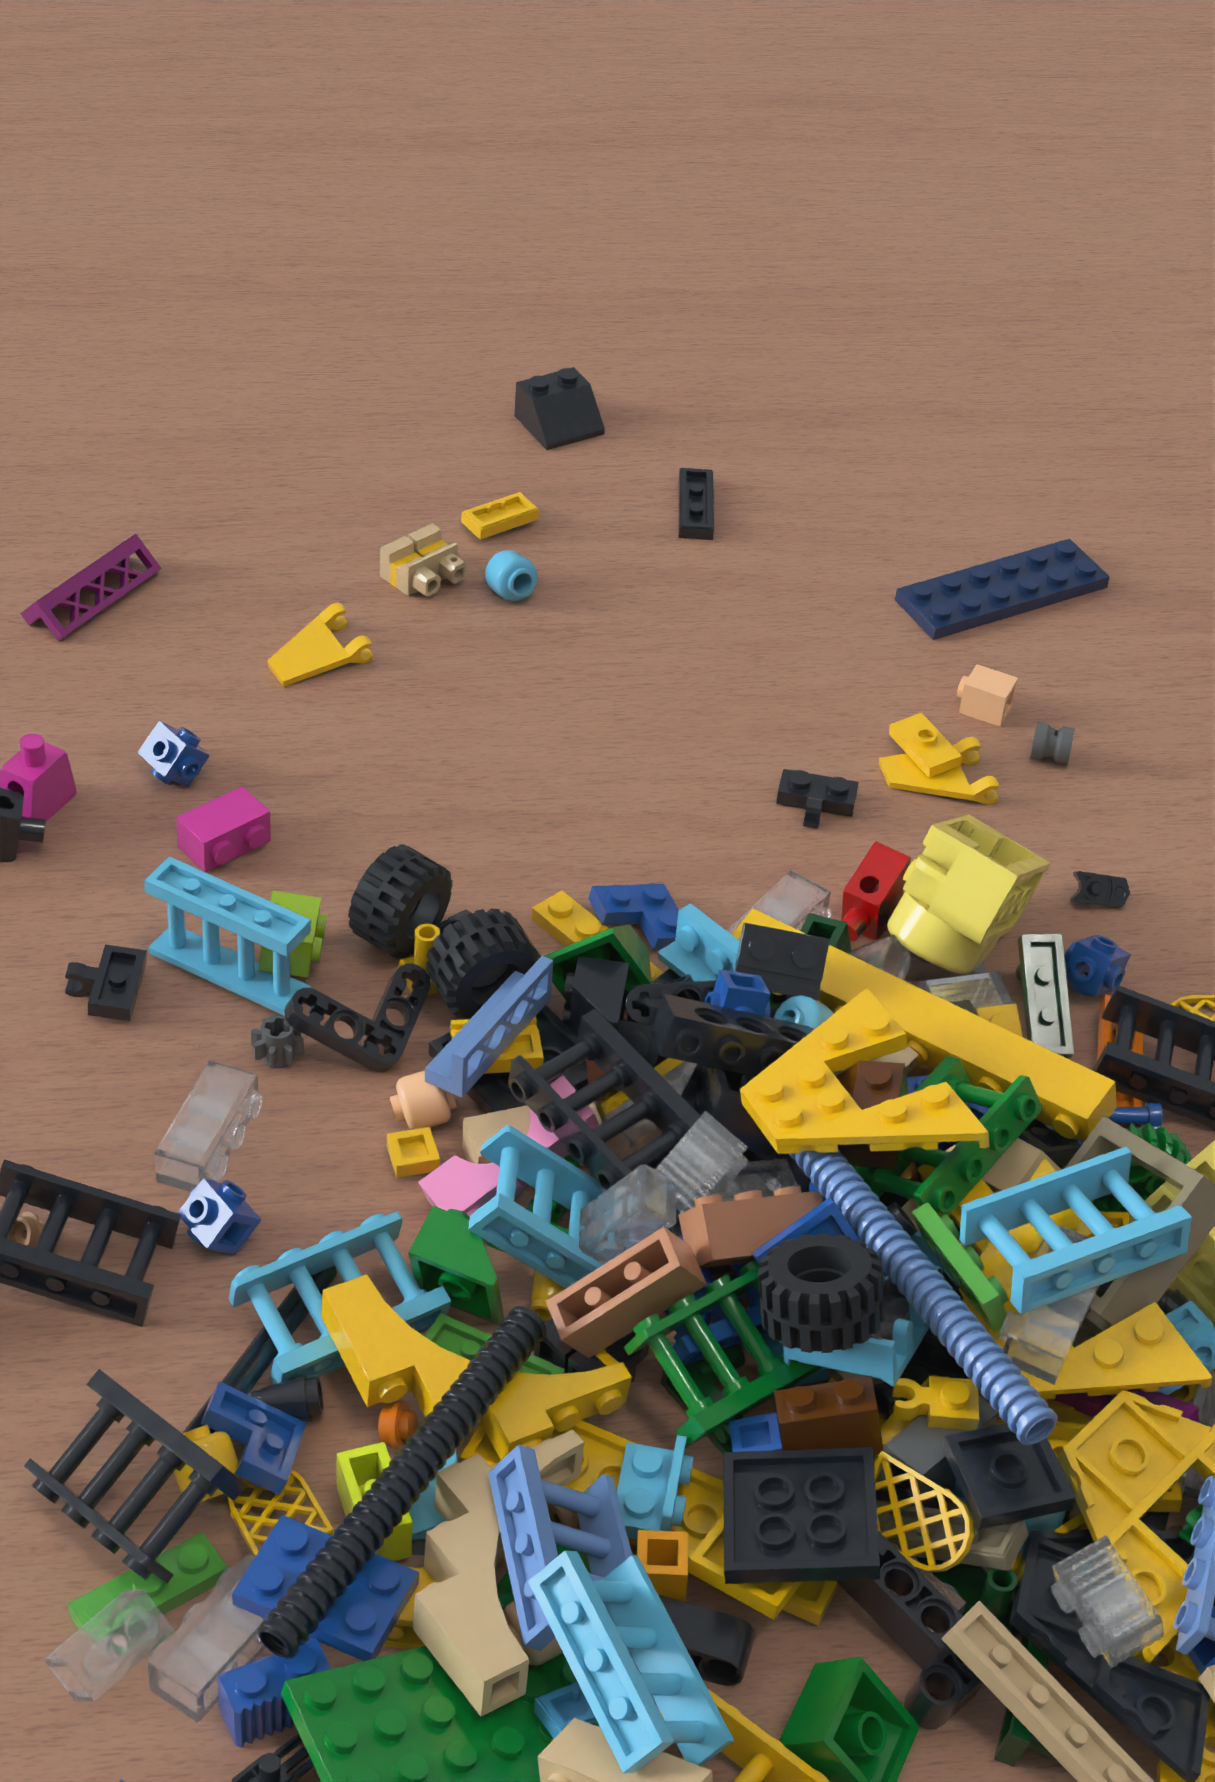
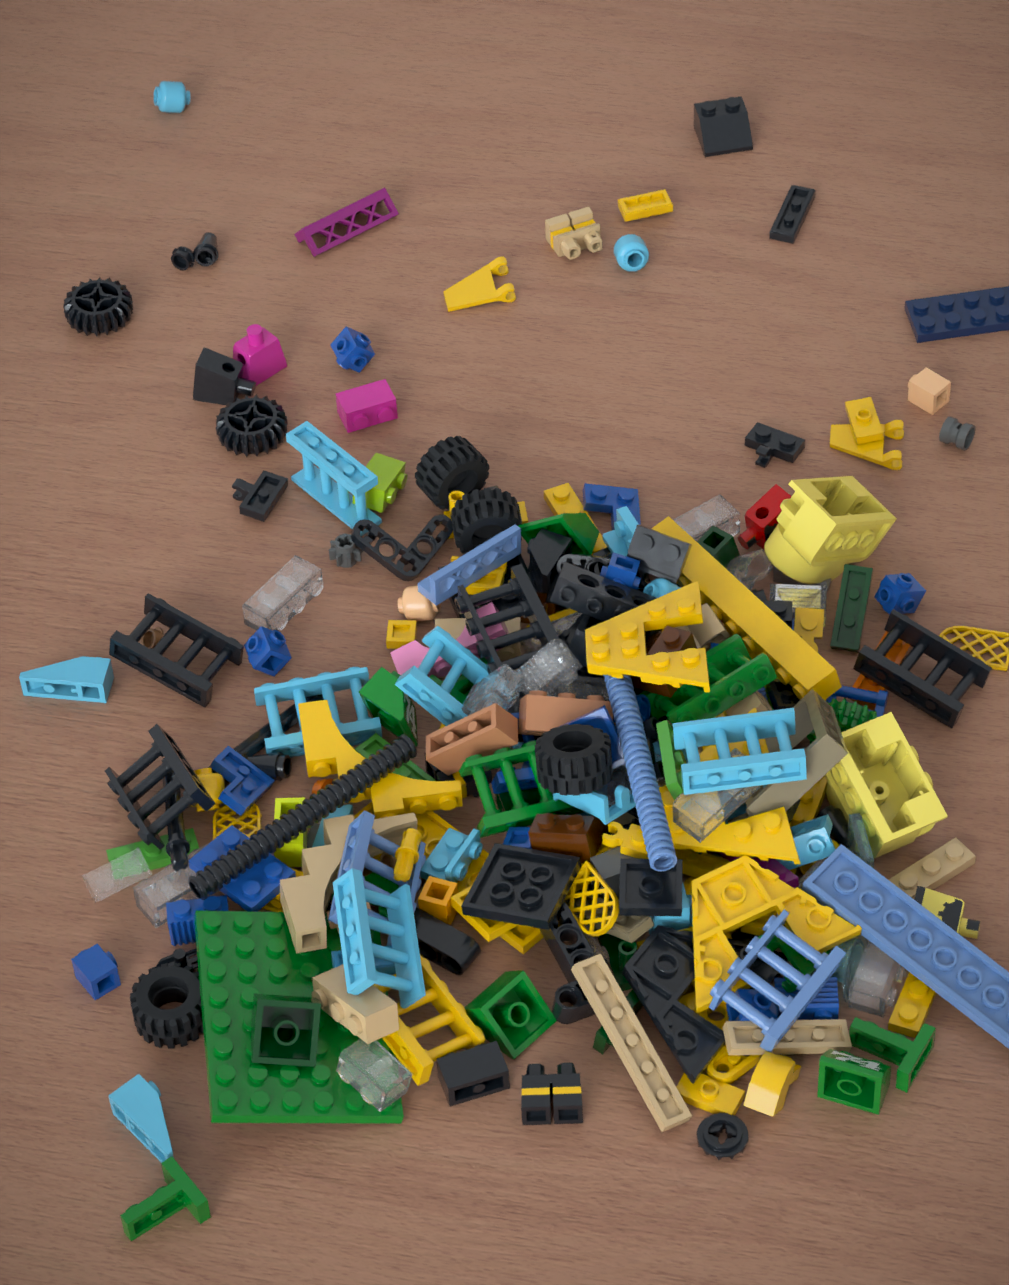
camera: 25 degrees right, 5 degrees up
(36, 890) = (251, 425): none -> black gear
(200, 1569) = (177, 844): none -> black axle
(599, 1504) = (407, 854): none -> yellow axle
(1100, 889) = (937, 542): black piece -> none
(1107, 1602) = (676, 971): clear brick -> none

